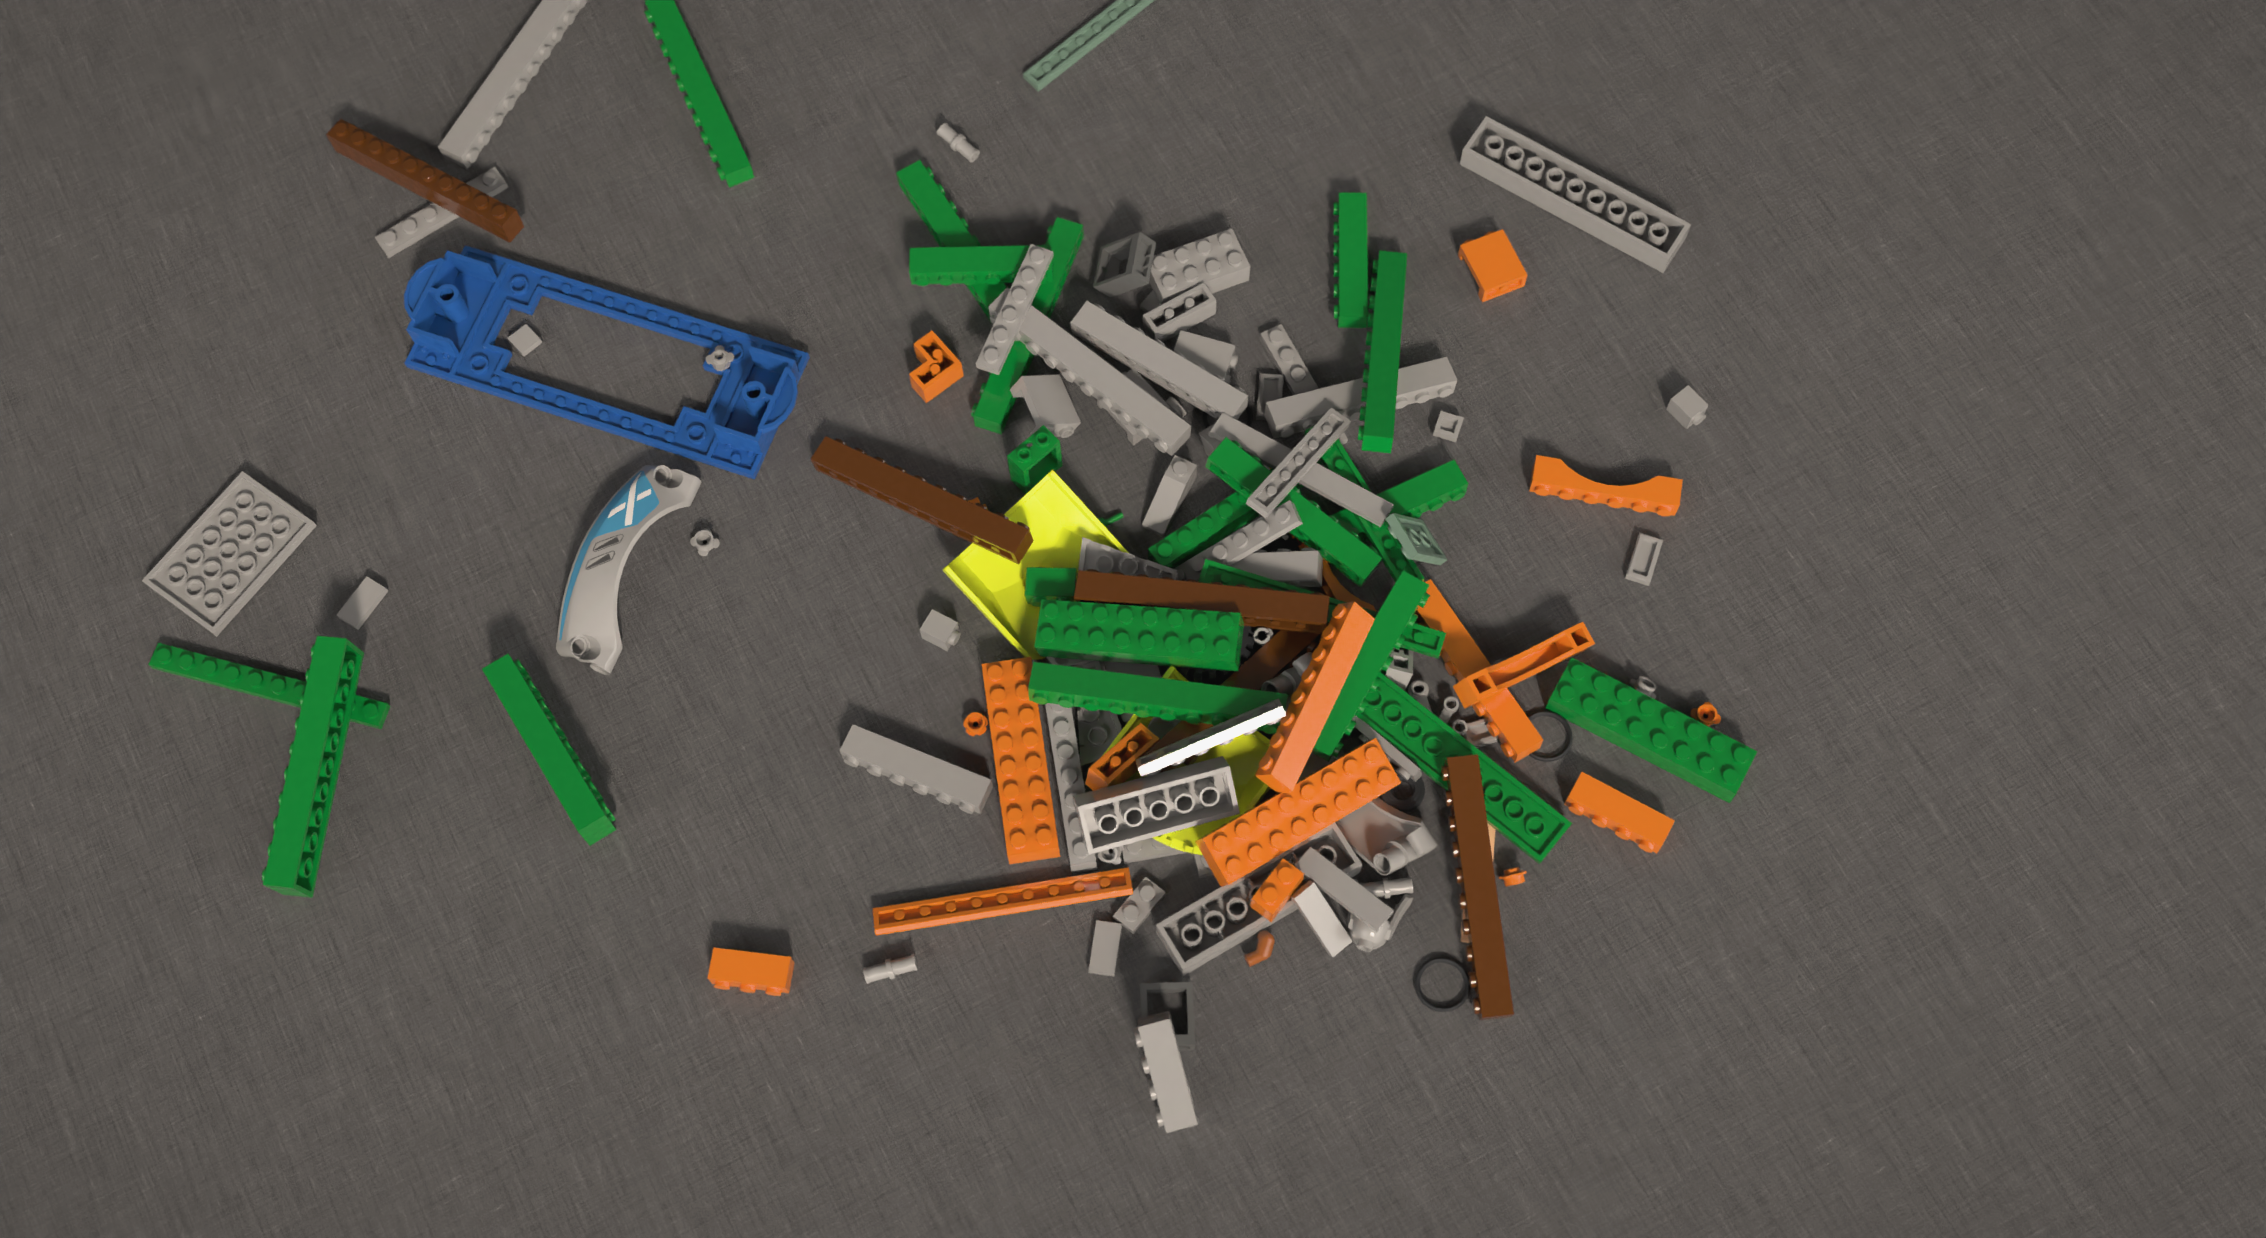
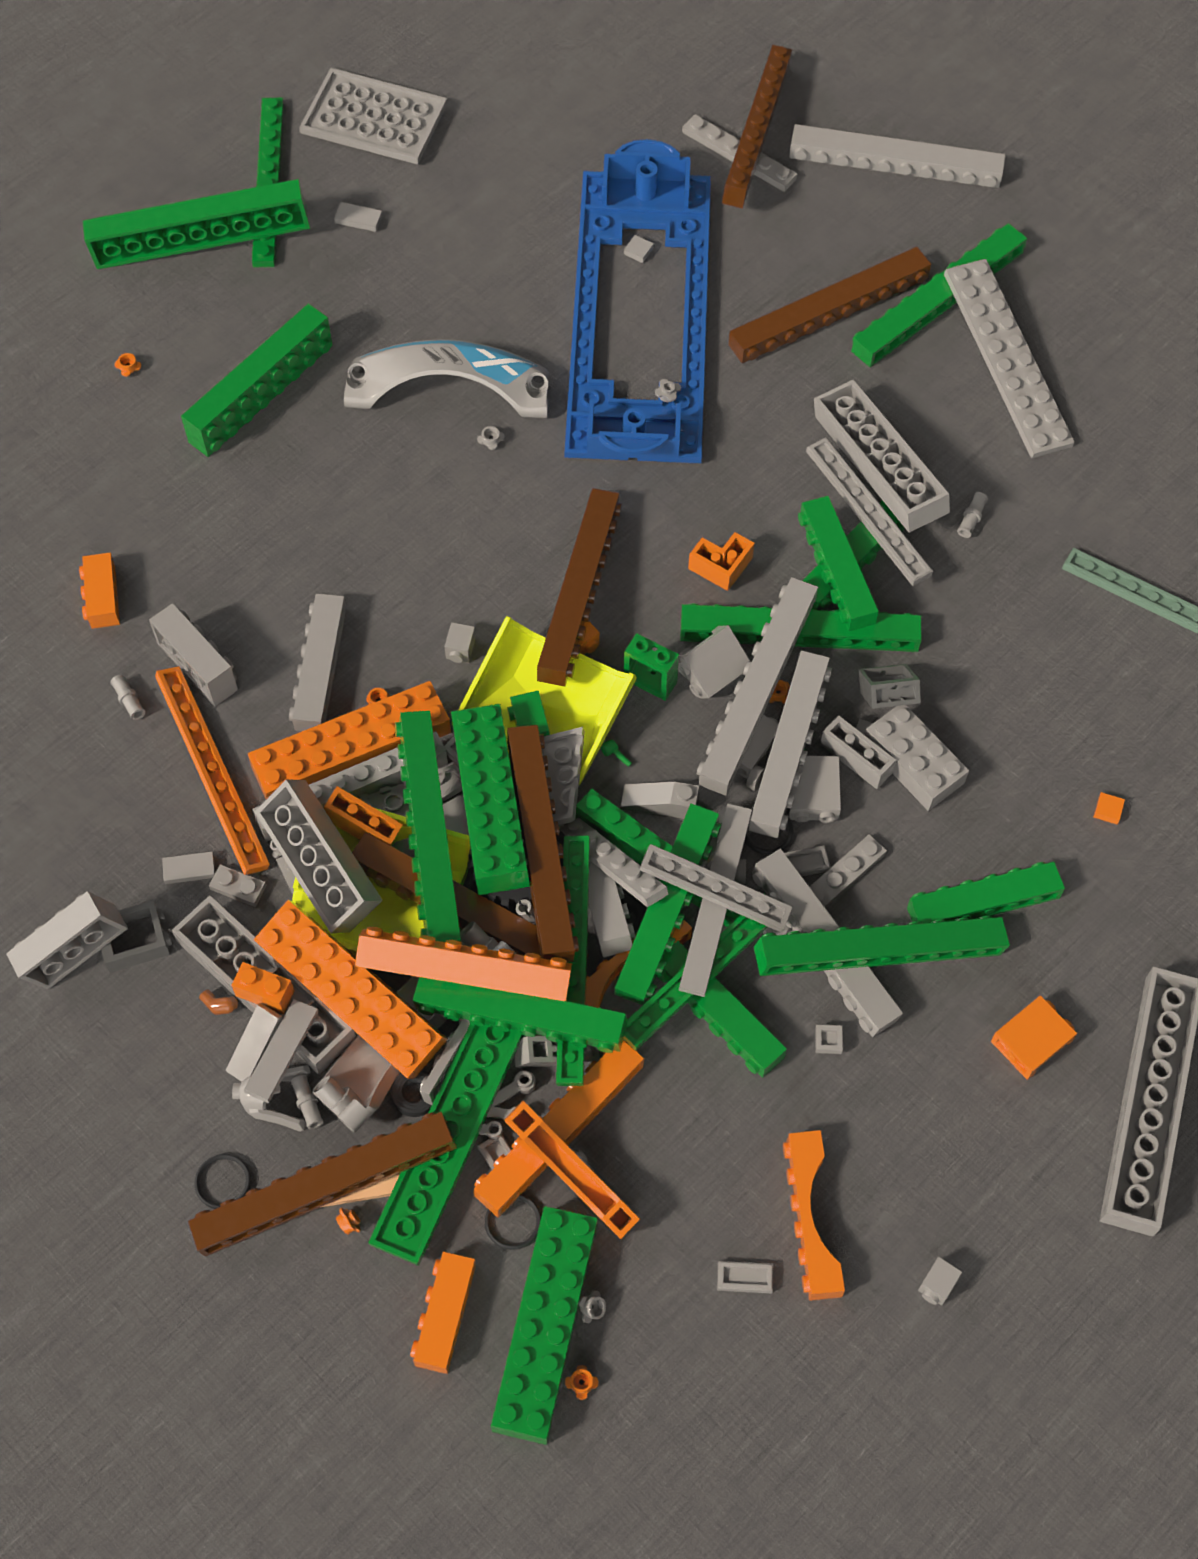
camera: 70 degrees right, 5 degrees down
(459, 881) = (127, 359): none -> orange plate
(671, 187) = (829, 305): none -> reddish brown brick
(797, 53) = (1009, 358): none -> light grey plate
(869, 886) = (194, 654): none -> light grey brick
(875, 191) = (882, 456): none -> light grey brick
(929, 223) = (869, 511): none -> light grey tile
(1014, 309) = (795, 598): light grey plate -> none
(1202, 741) = (390, 877): plate -> none
(1293, 136) = (1109, 808): none -> orange tile
(1415, 539) = (679, 1030): sand green plate -> none

